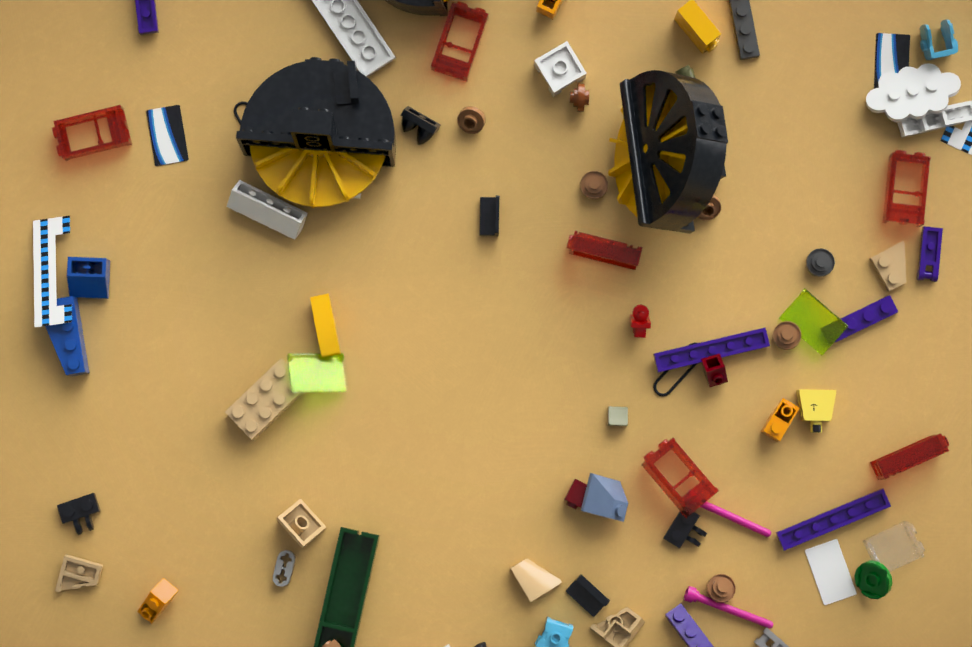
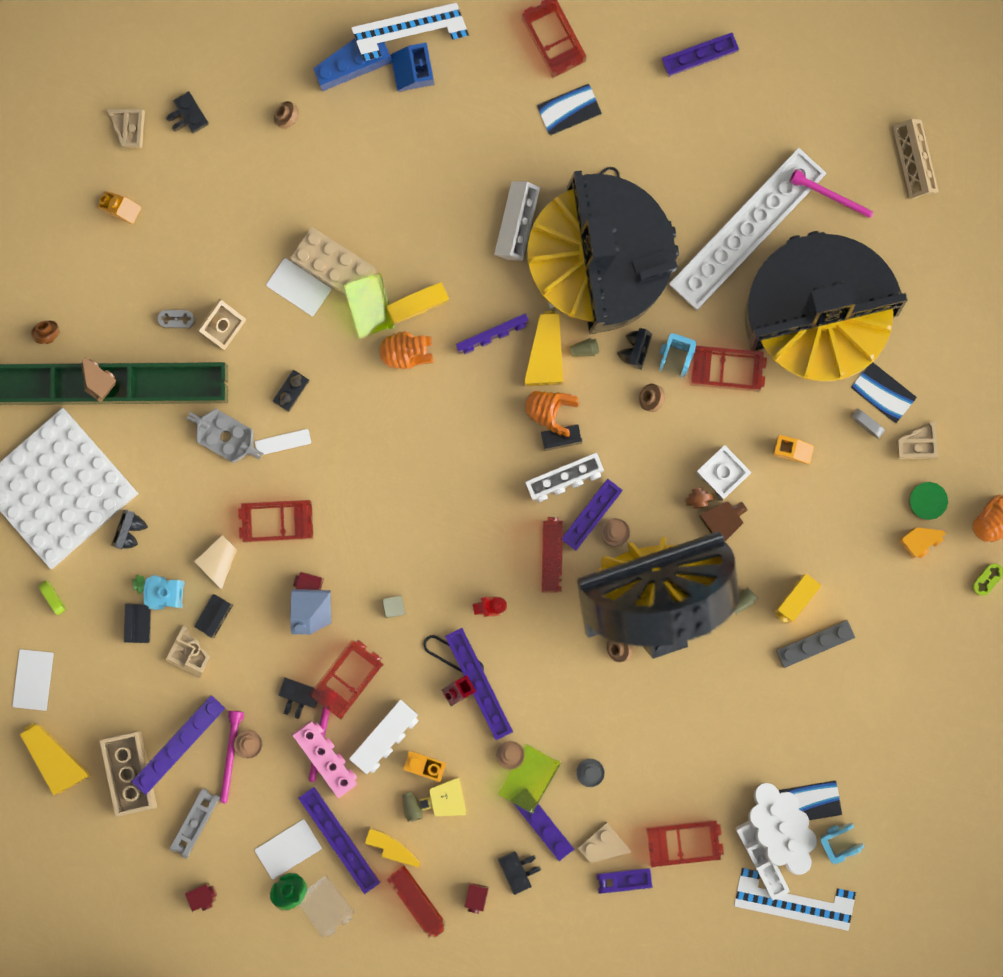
camera: 80 degrees right, 0 degrees up
(105, 413) = (286, 114): none -> medium nougat plate
(280, 439) = (298, 287): none -> white sticker
(369, 347) = (405, 351): none -> orange hair
(372, 251) = (500, 331): none -> dark purple plate
(382, 469) = (291, 390): none -> black tile
(399, 554) = (210, 430): none -> light grey plate
(406, 212) = (546, 353): none -> yellow slope
(407, 173) = (585, 348): none -> olive cone
(425, 78) = (680, 343): none -> medium azure piece
(431, 489) = (283, 442): none -> white sticker
(458, 227) = (544, 406): none -> orange hair
(511, 486) = (302, 517): none -> clear red door
(529, 219) = (563, 477): none -> white brick
(571, 203) = (591, 514): none -> dark purple plate
(604, 78) = (724, 518): none -> reddish brown torso
(743, 453) = (384, 736): none -> white brick
(753, 515) = (324, 759): none -> bright pink brick
(816, 442) = (412, 809): none -> olive cone
(852, 469) = (392, 848): none -> yellow slope
(899, 356) = (515, 872): none -> black hinge
(916, 398) = (476, 898): none -> dark red brick

